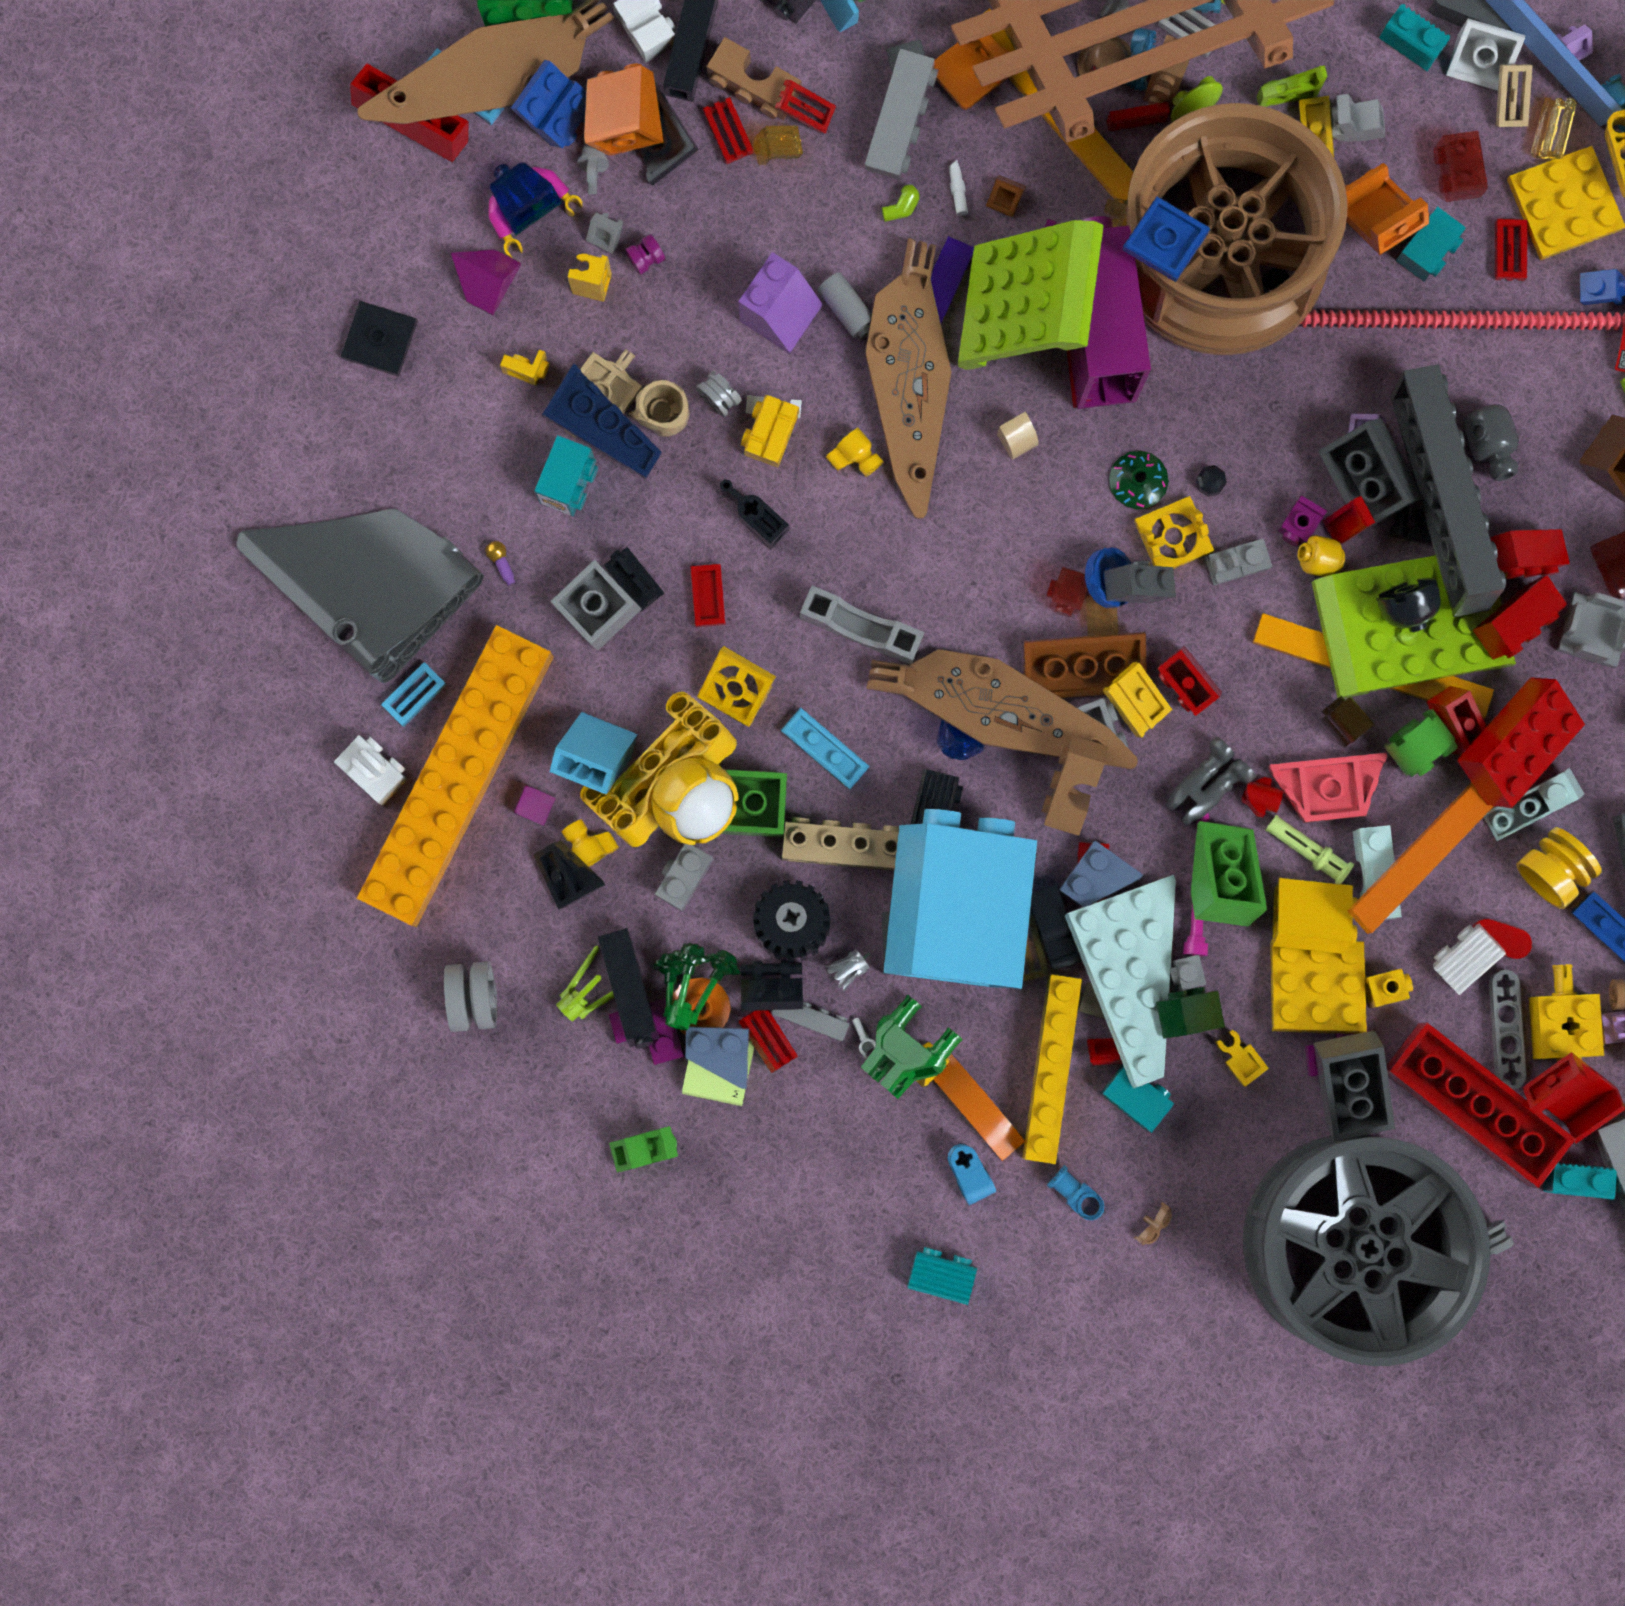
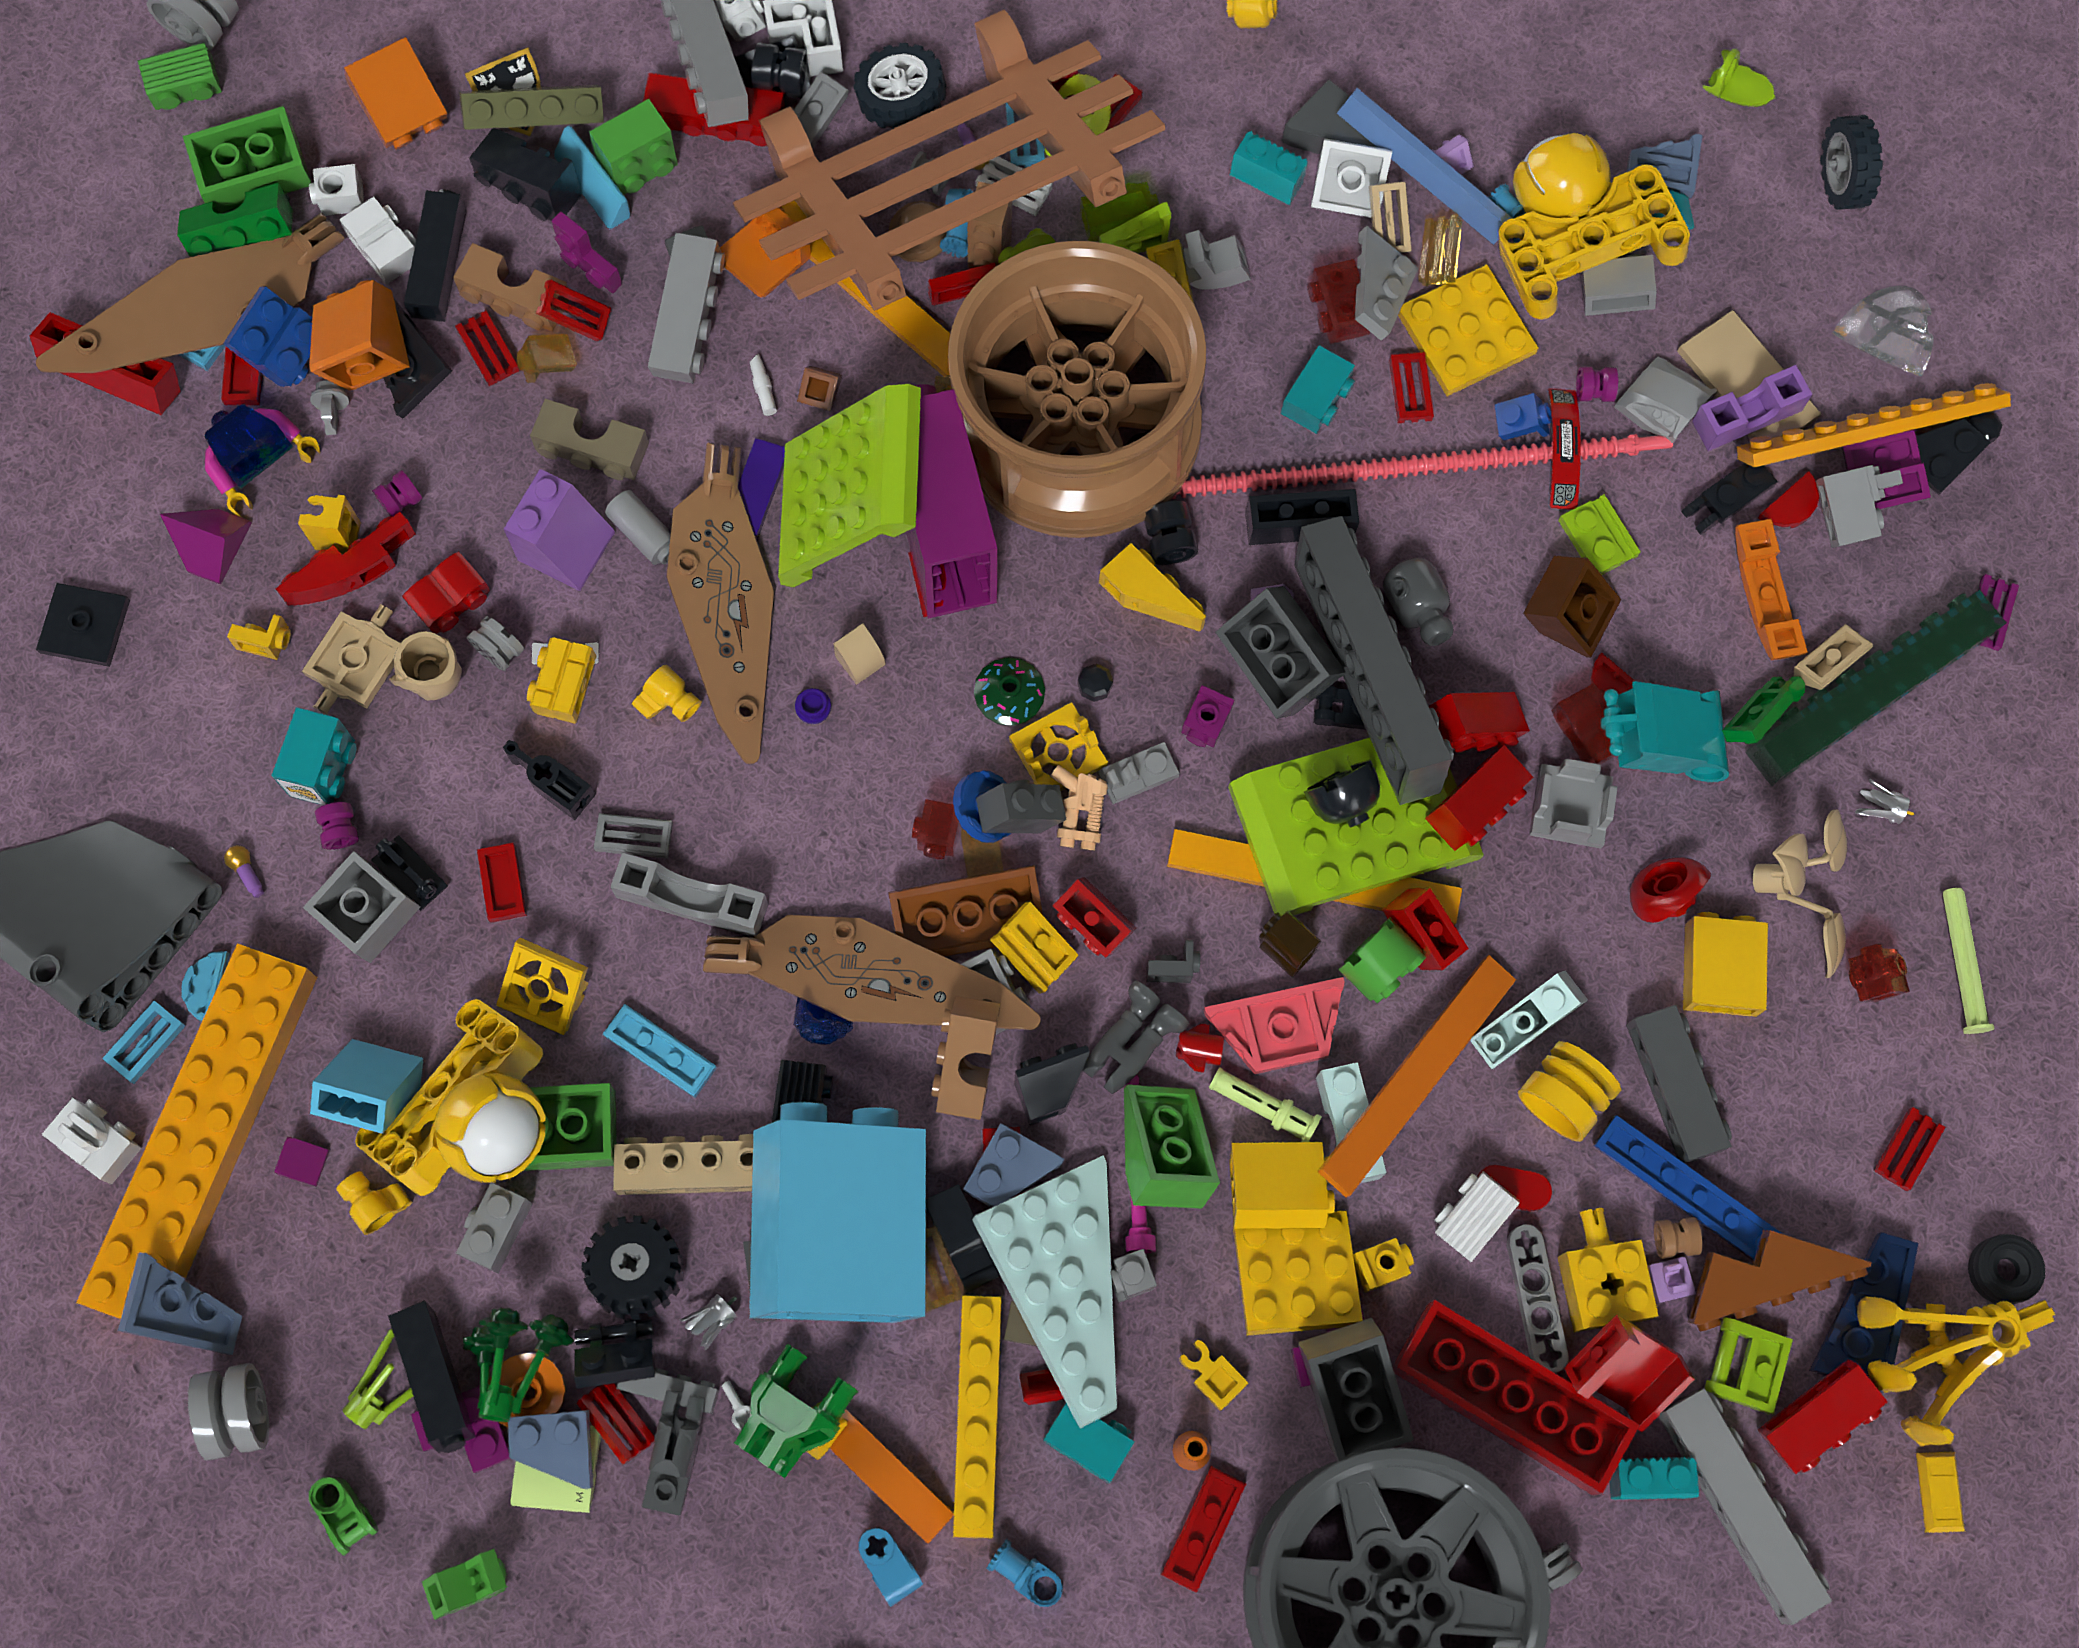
camera: 10 degrees left, 10 degrees down
(432, 914) = (174, 1311): none -> sand blue wing
(463, 653) = (202, 981): none -> medium azure tile
(519, 138) = (240, 381): none -> red tile
(552, 1085) = (342, 1515): none -> bright green piece
(566, 874) = (345, 1242): black wing -> none
(578, 533) = (336, 825): none -> magenta wheel
(589, 318) = (337, 574): none -> red slope
(593, 418) = (343, 686): dark blue wing -> none
(604, 232) = (347, 474): light grey tile -> none
(681, 345) = (447, 593): none -> red brick
(811, 1070) = (673, 1454): none -> dark grey plate
(812, 51) = (578, 252): none -> magenta plate
(815, 568) = (618, 848): none -> light grey tile
(830, 237) = (615, 453): none -> dark tan arch
(904, 206) = (701, 411): lime arm -> none
(975, 475) = (813, 706): none -> dark purple plate
(1136, 816) = (1049, 1084): none -> black slope
(1161, 1221) = (1137, 1597): medium nougat piece -> none
(1166, 239) = (996, 396): blue plate -> none
(1190, 1012) = (1140, 1324): dark green brick -> none
(1192, 576) = (1085, 795): none -> light nougat piece
(1209, 1114) = (1181, 1453): none -> orange cone
(1219, 1175) = (1203, 1529): none -> red tile
(1244, 730) = (1169, 970): none -> dark grey bracket
(1261, 404) = (1143, 588): none -> yellow slope
(1290, 348) = (1171, 537): none -> black wheel
(1302, 60) = (1117, 211): none -> clear neon green brick
(1321, 556) = (1234, 753): yellow head -> none
(1349, 520) = (1262, 709): red tile -> none
(1383, 210) = (1255, 356): orange panel -> none
(1394, 355) = (1281, 516): none -> black brick
(1501, 155) = (1383, 284): none -> light grey wing
(1521, 742) = (1501, 944): red brick -> none

